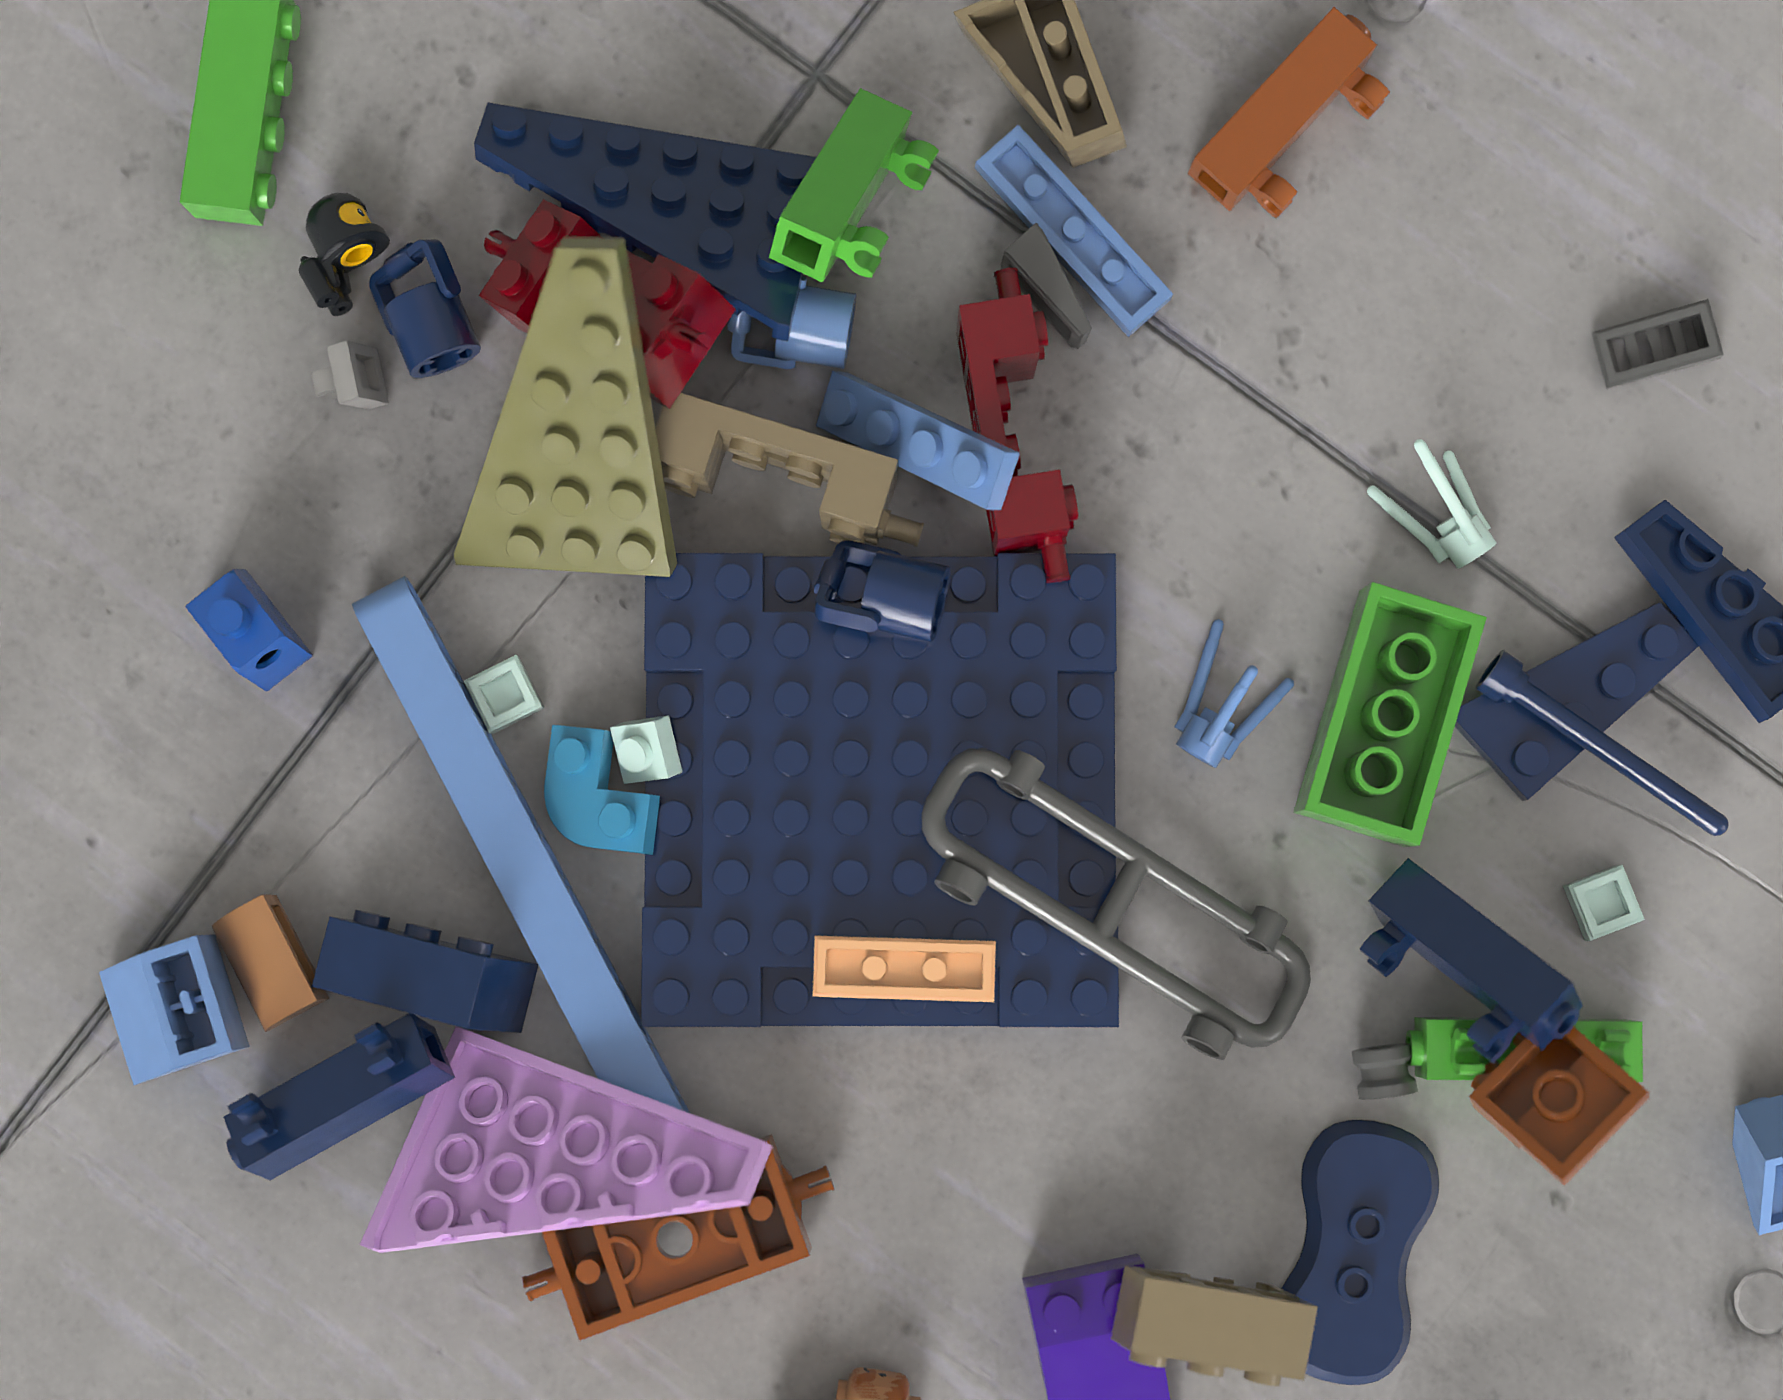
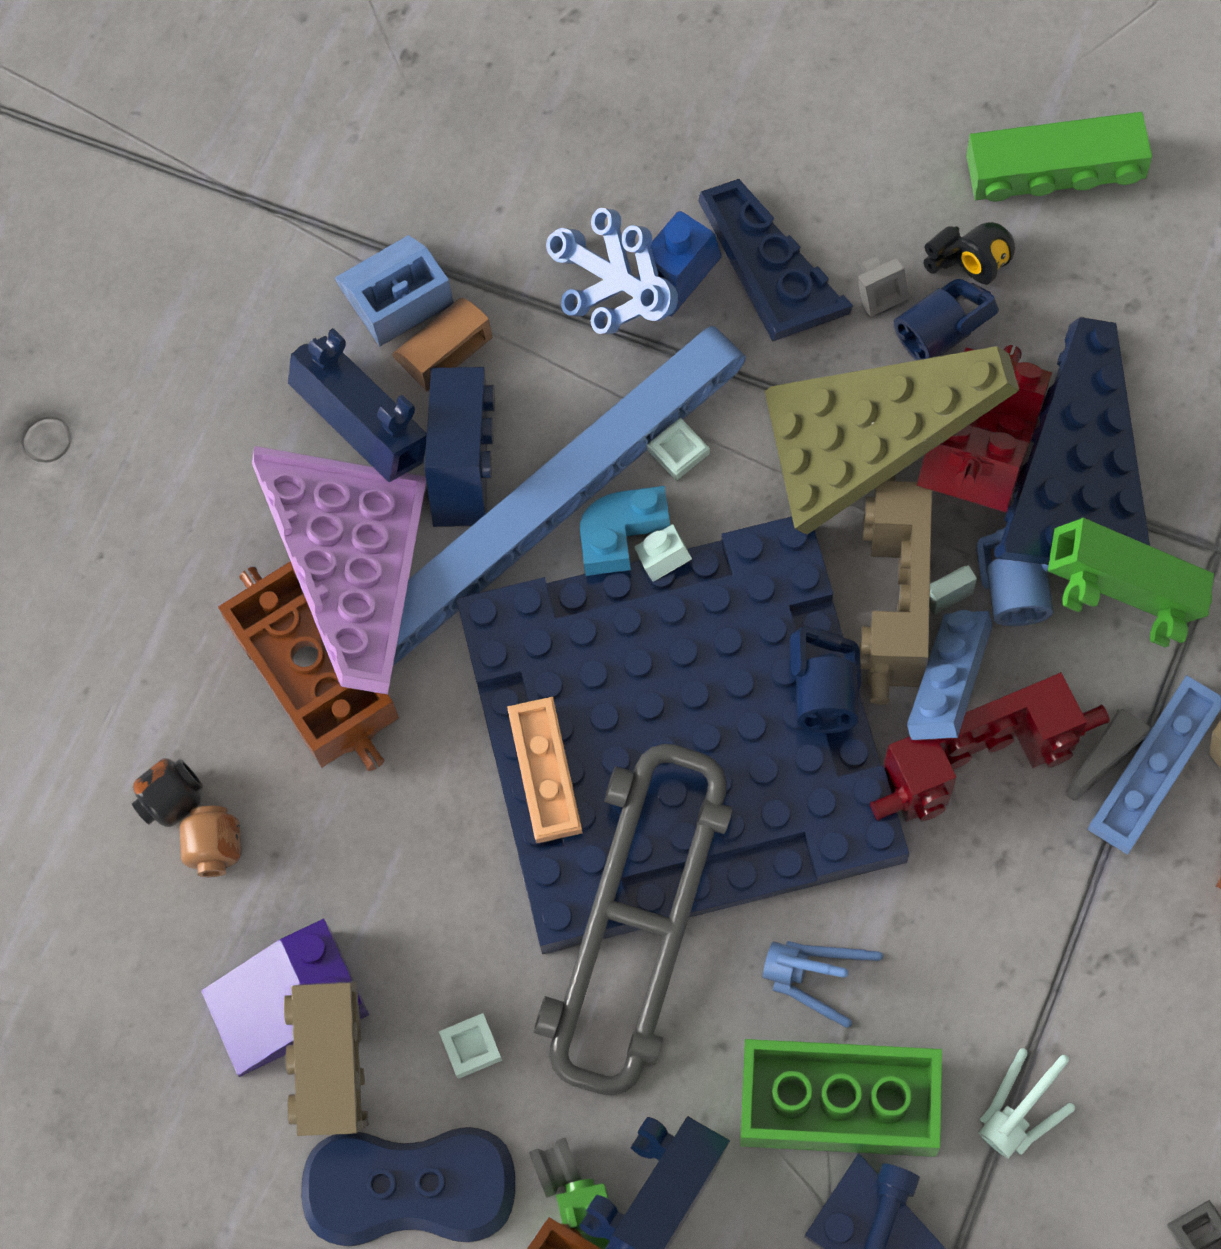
camera: 85 degrees right, 15 degrees down
(244, 712) = (570, 247): none -> plant
(300, 506) = (774, 273): none -> dark blue wing
(788, 401) = (951, 589): none -> light aqua tile
(1213, 1139) = (470, 1045): none -> light aqua plate

